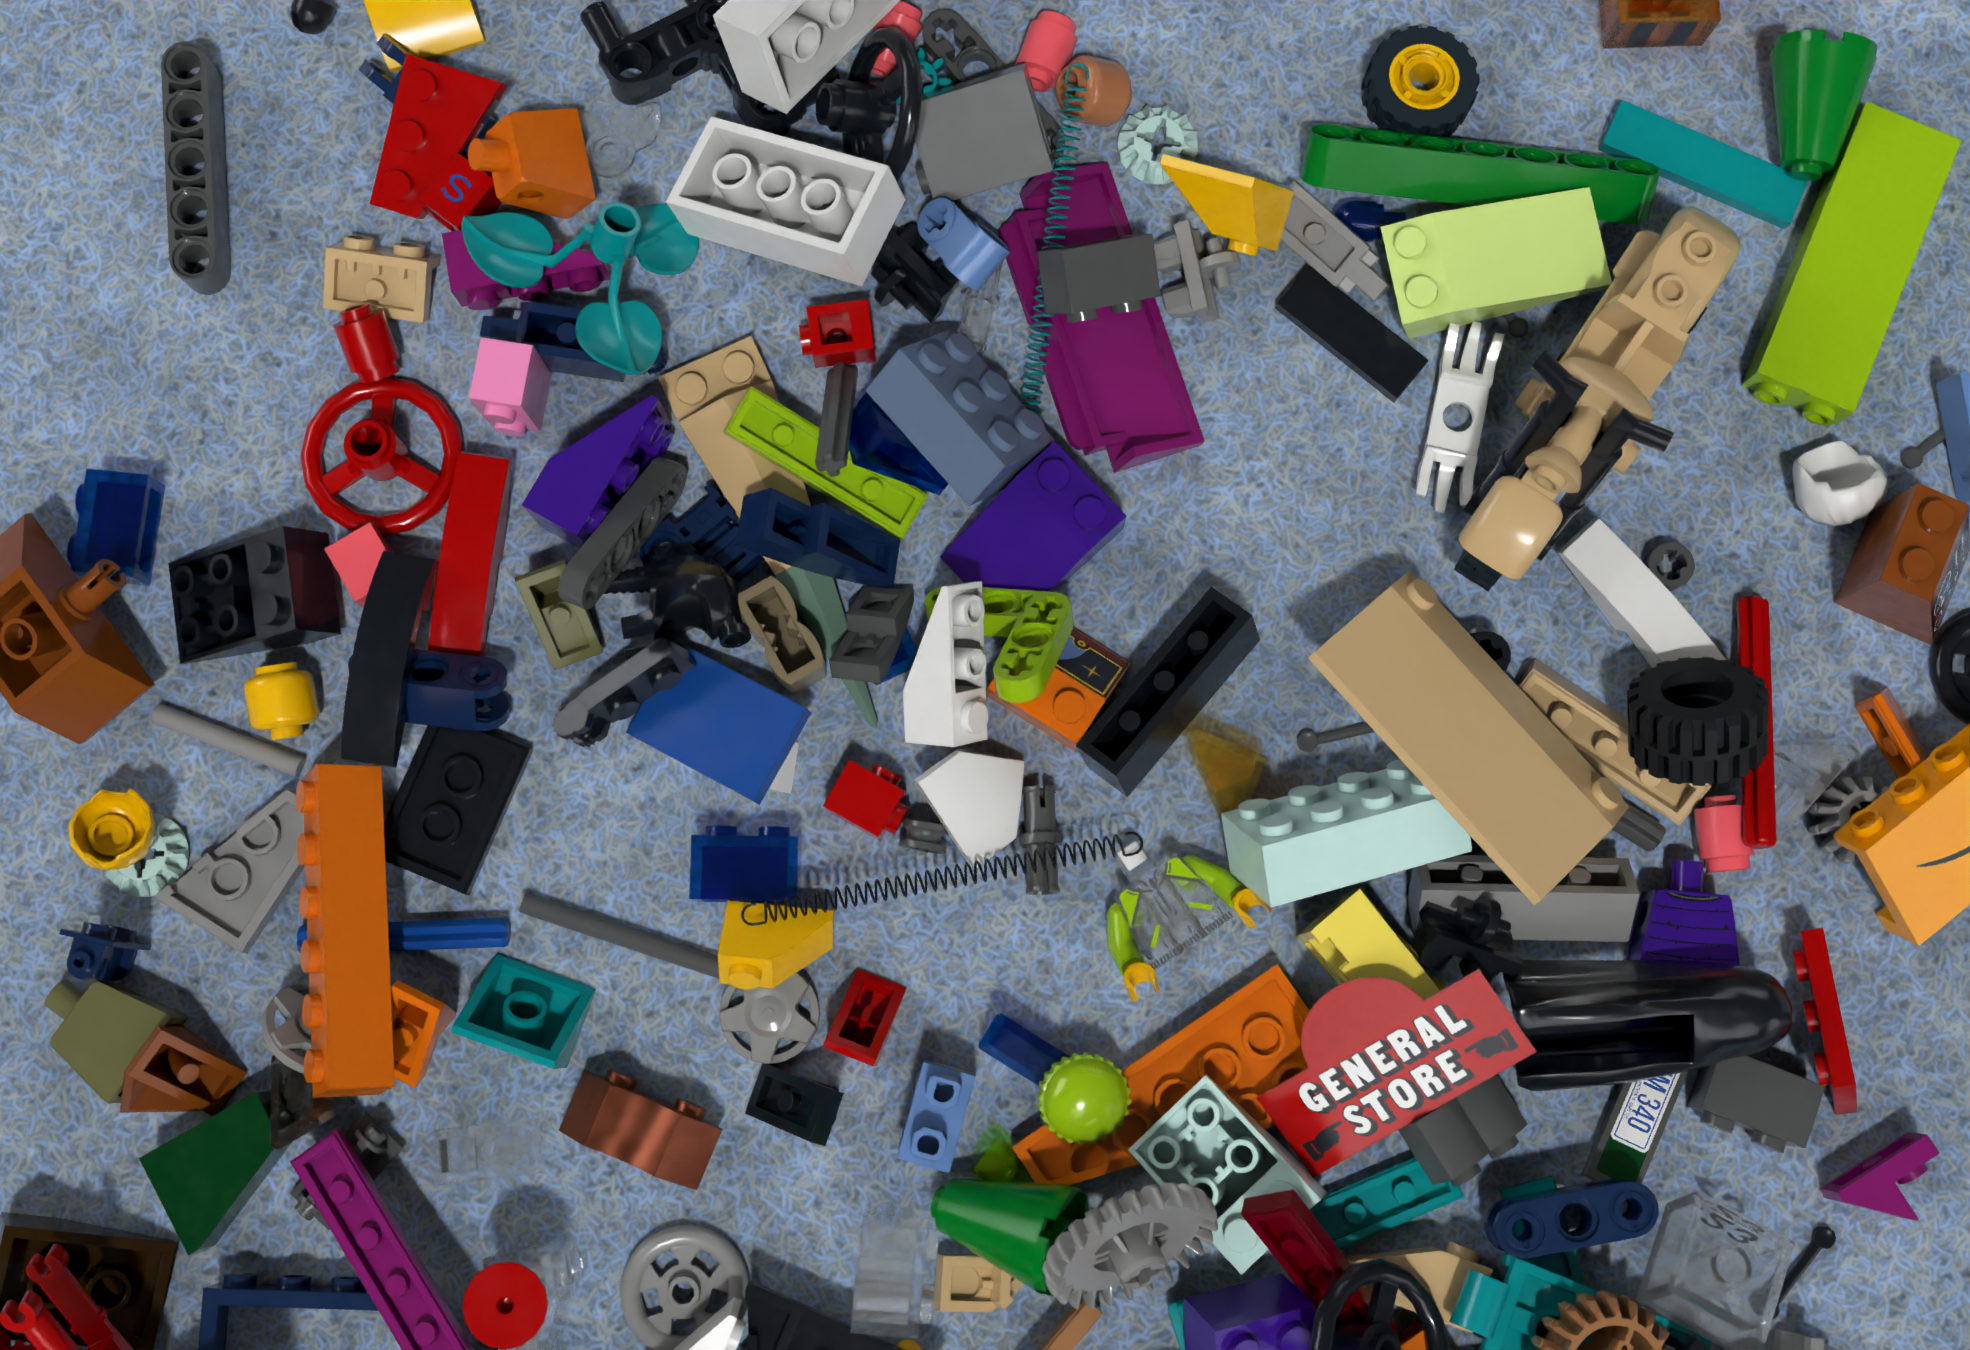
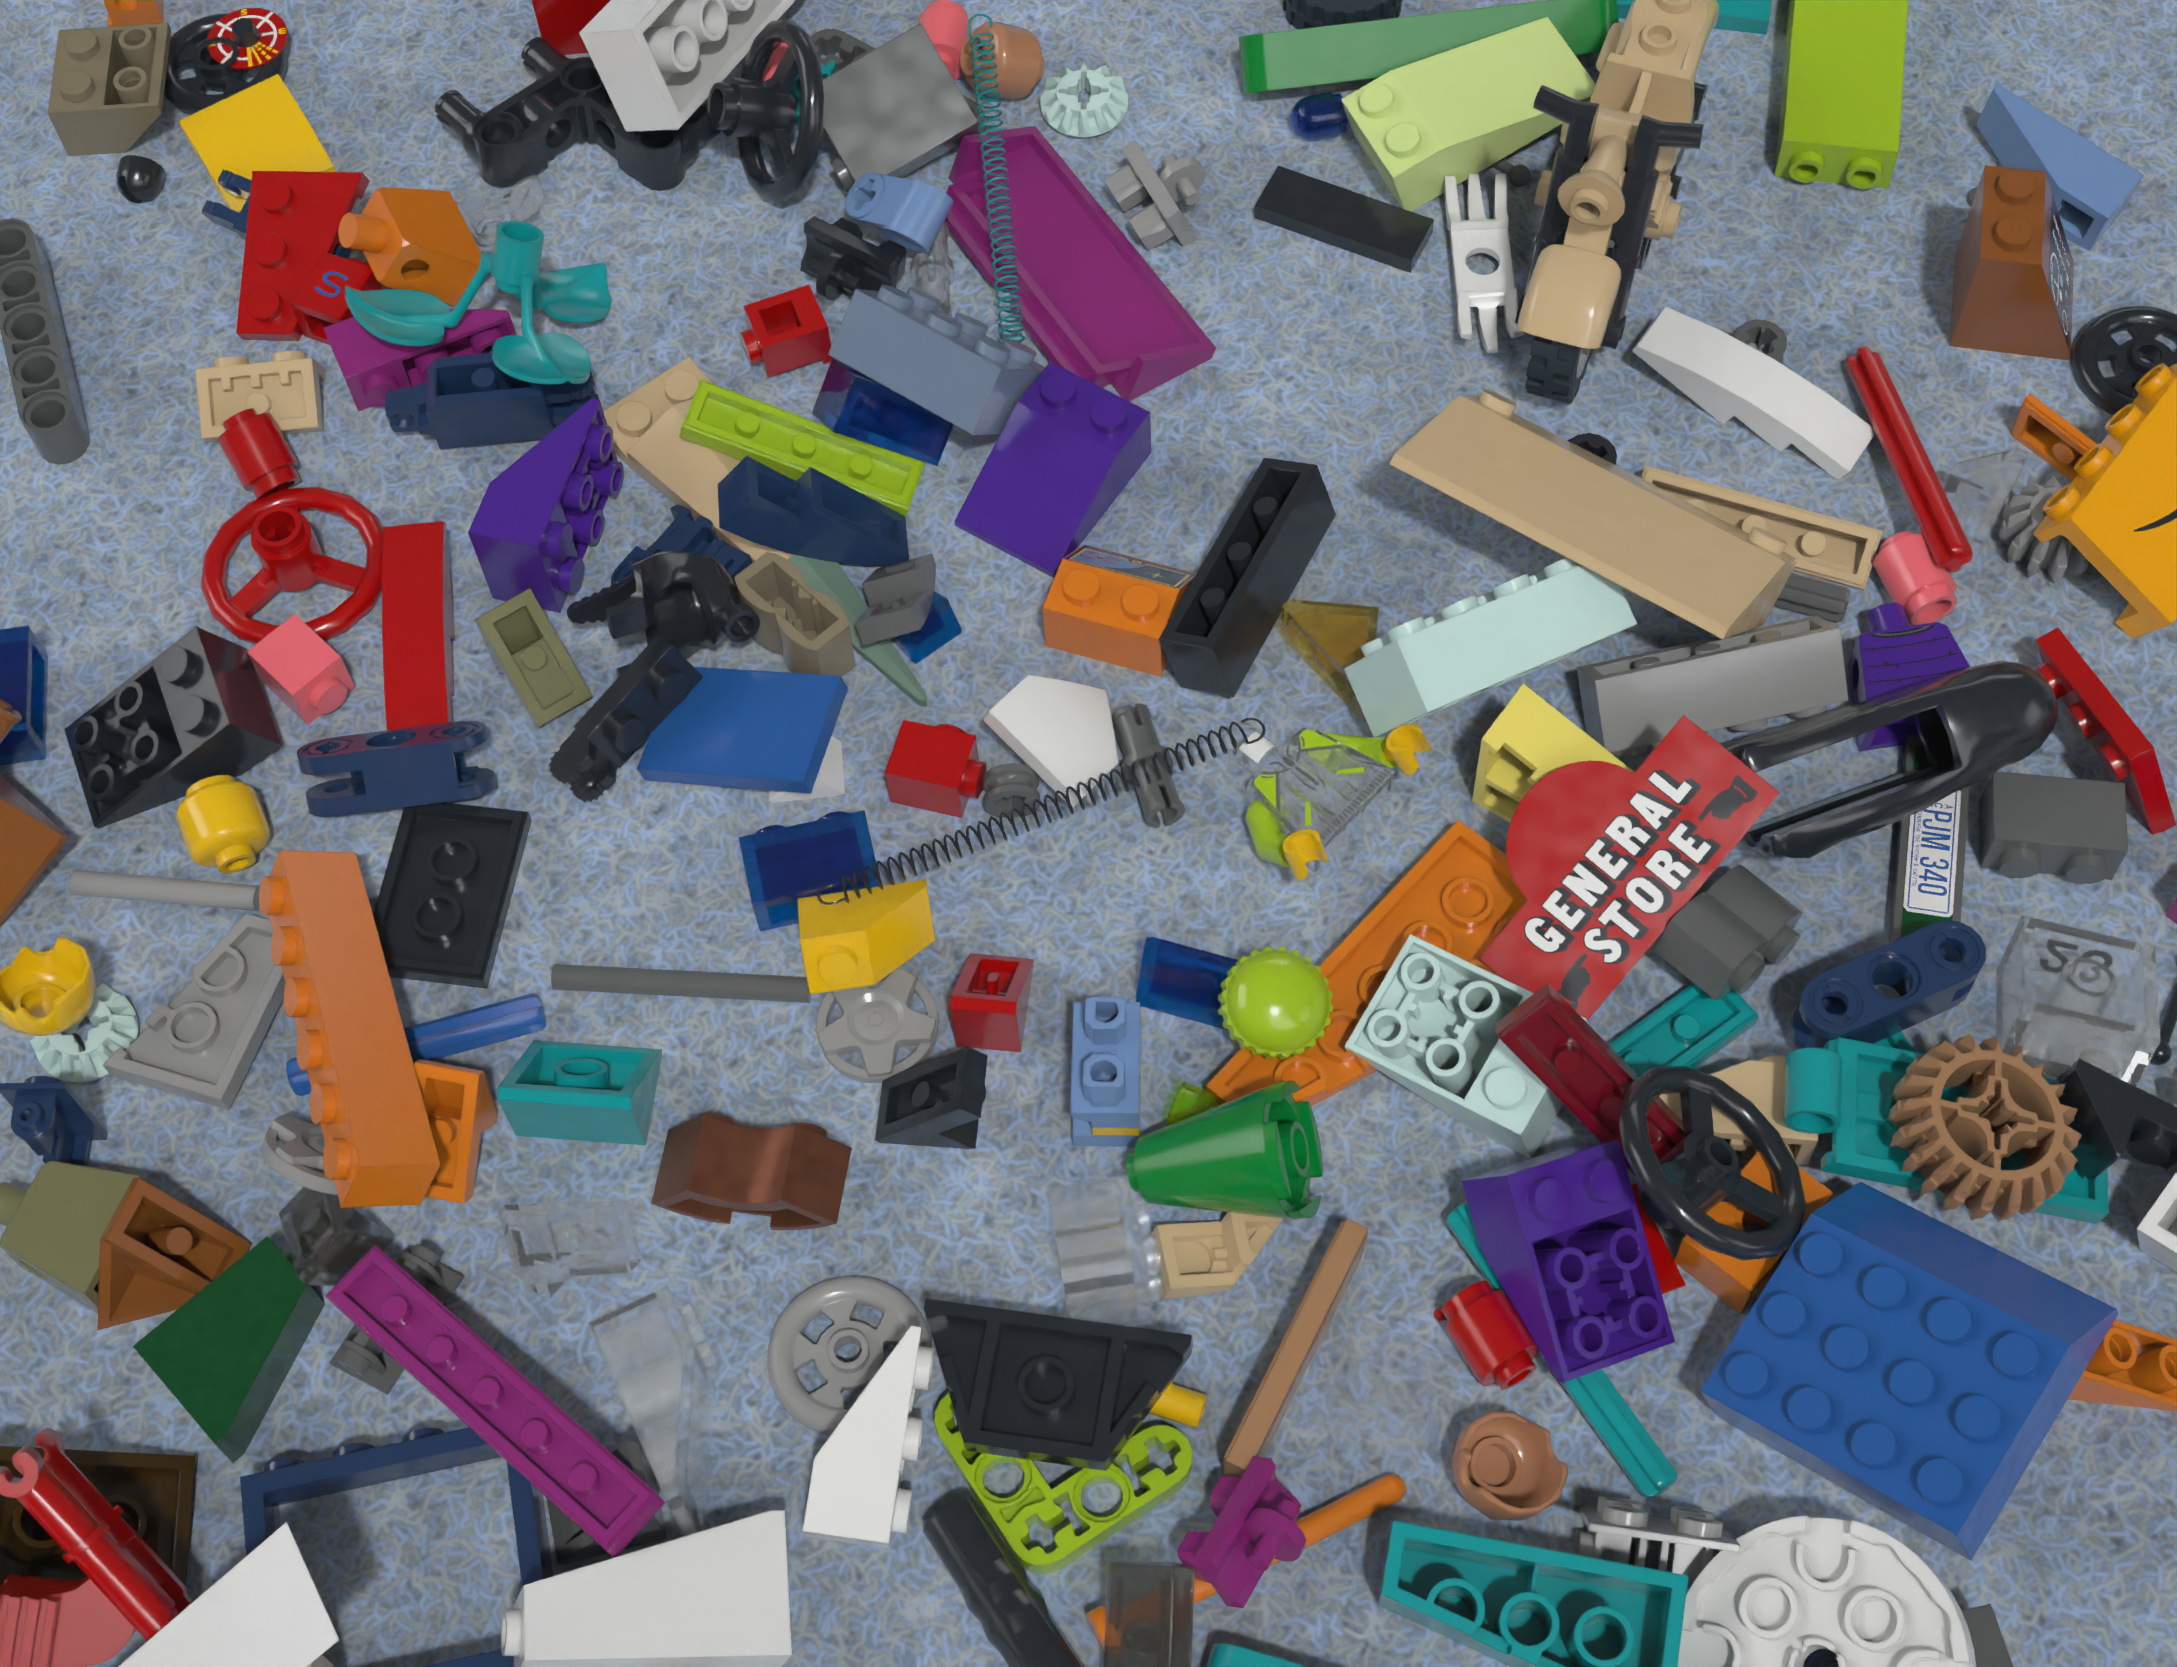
camera: 10 degrees left, 20 degrees down
(384, 657) = (337, 740): black slope -> none
(505, 1305) = (629, 1356): red piece -> none
(510, 386) = (430, 448): bright pink brick -> none
(622, 533) = (588, 553): dark grey beam -> none
(786, 200) = (697, 209): white brick -> none
(836, 419) = (803, 398): dark grey axle -> none
(947, 679) = (993, 606): white slope -> none
(1024, 625) = (1068, 543): lime beam -> none
(1099, 275) = (1054, 201): dark grey brick -> none
(1129, 1243) = (1388, 1118): light grey gear -> none
(1232, 203) = (1178, 107): yellow slope -> none
(1309, 740) = (1422, 604): dark grey hinge -> none
(1331, 245) = (1289, 139): light grey hinge -> none
(1469, 933) = (1636, 722): black hips -> none
(1698, 720) = (1840, 448): black tyre -> none
(1838, 484) = (1909, 229): white hair -> none

